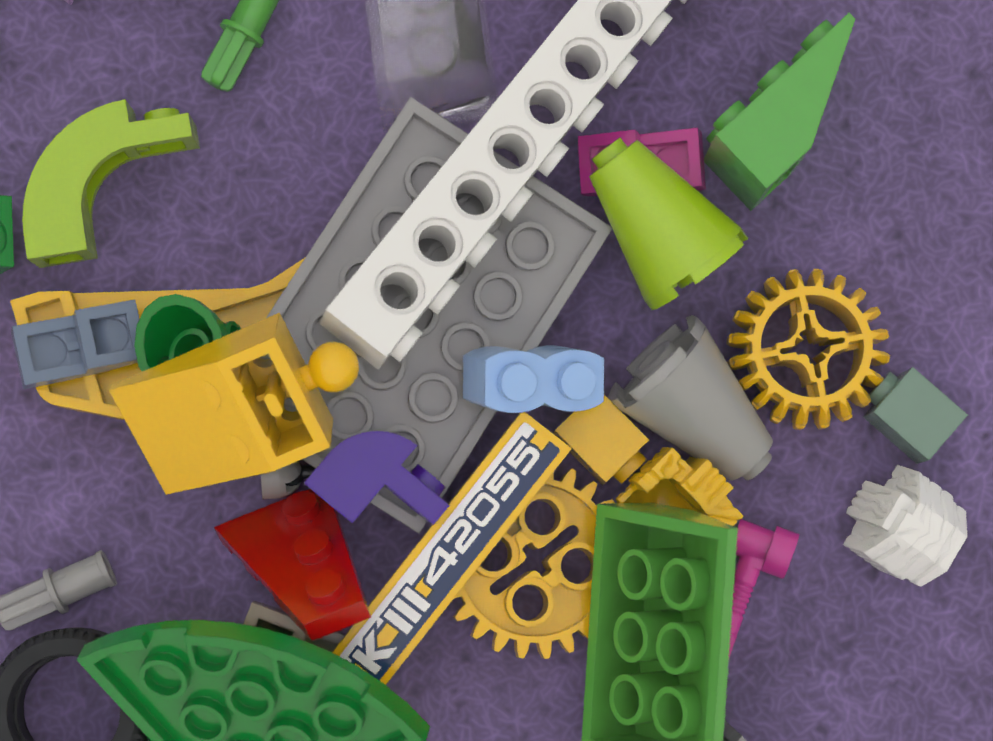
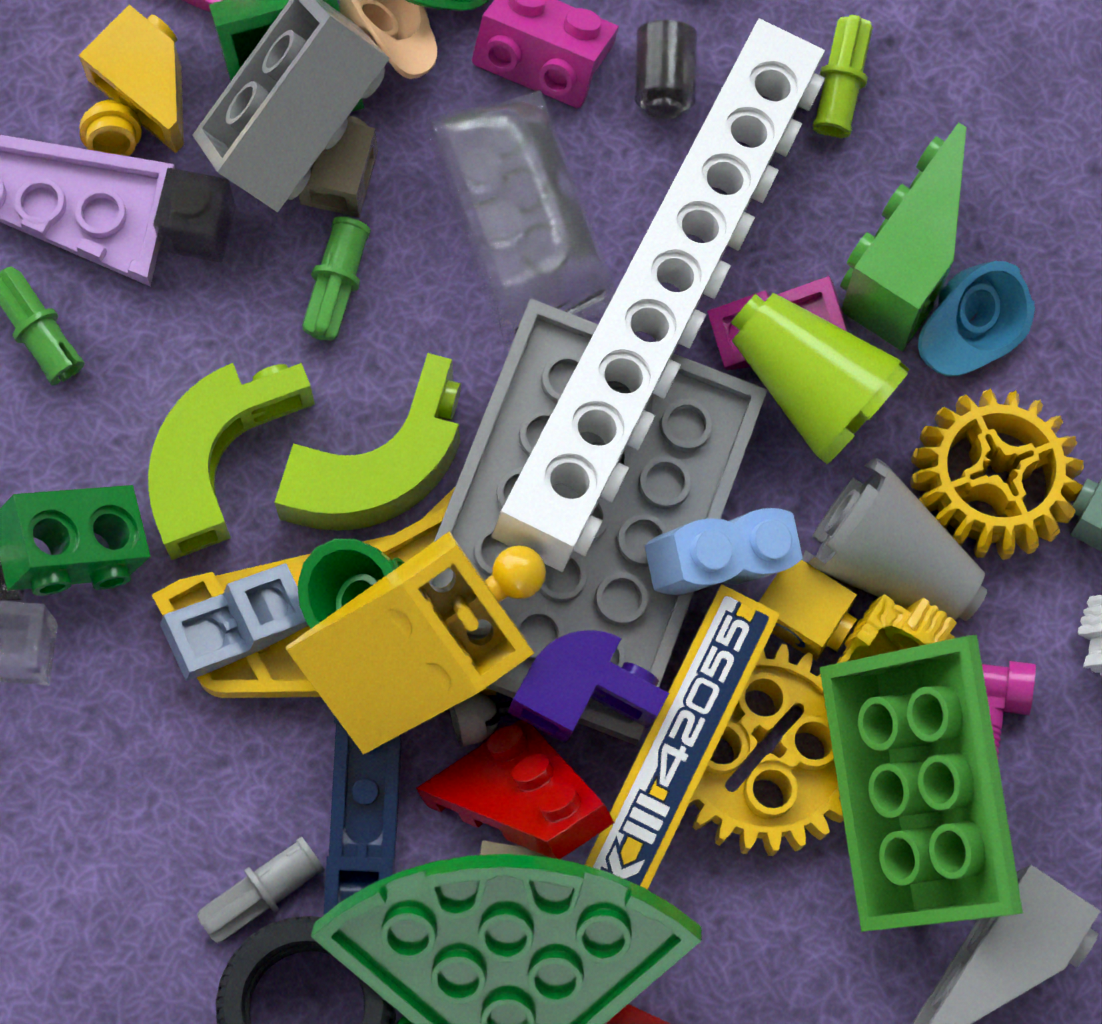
camera: 10 degrees left, 10 degrees down
(156, 556) = (361, 816): none -> dark blue slope
(248, 236) = (378, 485): none -> lime arch
(803, 219) = (1003, 319): none -> dark azure piece

